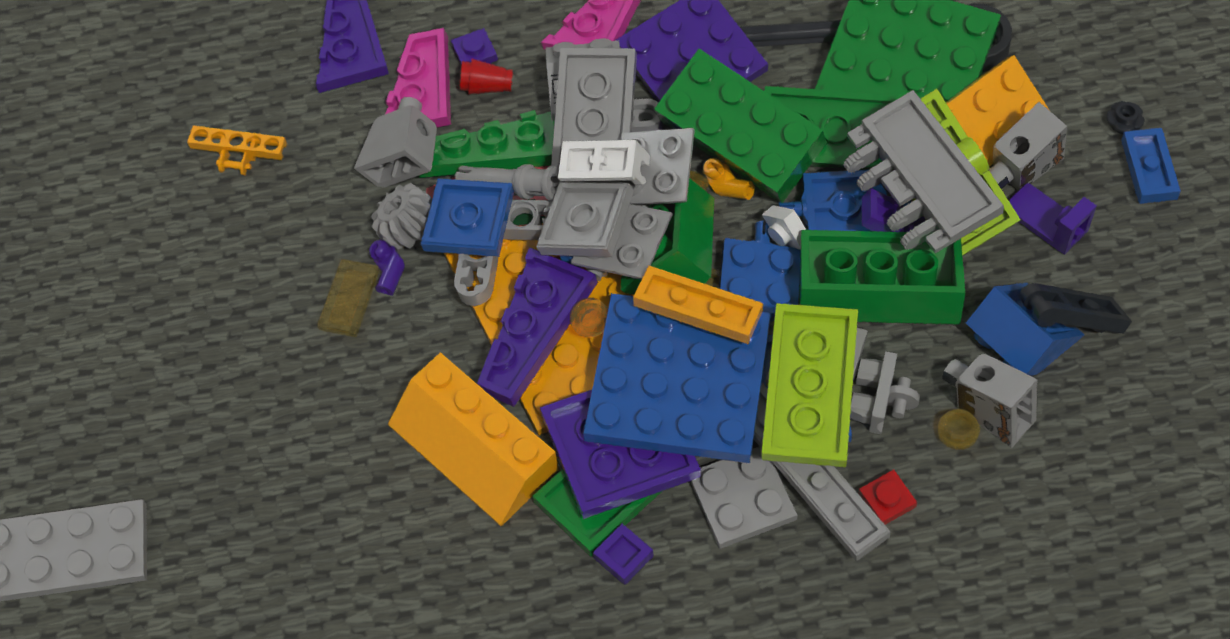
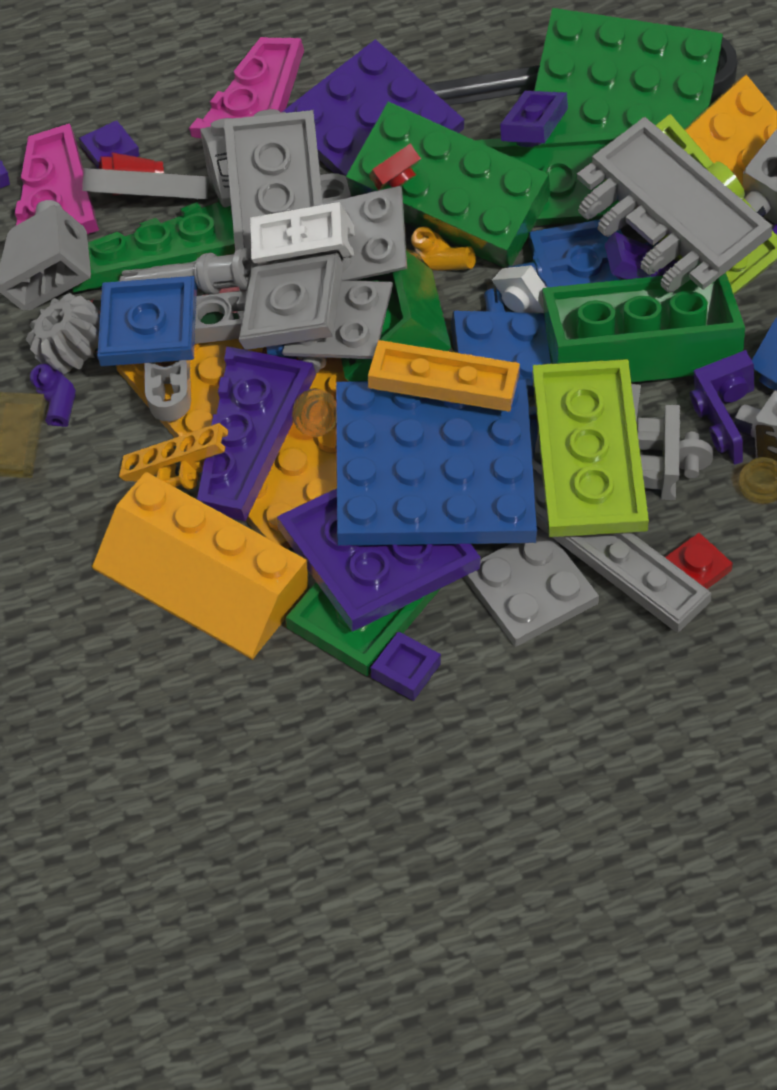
camera: 15 degrees left, 5 degrees down
(461, 344) = (165, 457): none -> light orange piece
(493, 90) = (145, 183): none -> light grey beam
(693, 112) = (396, 169): none -> red plate
(823, 73) = (534, 117): none -> dark purple plate
(940, 333) = (719, 382): none -> dark purple bracket

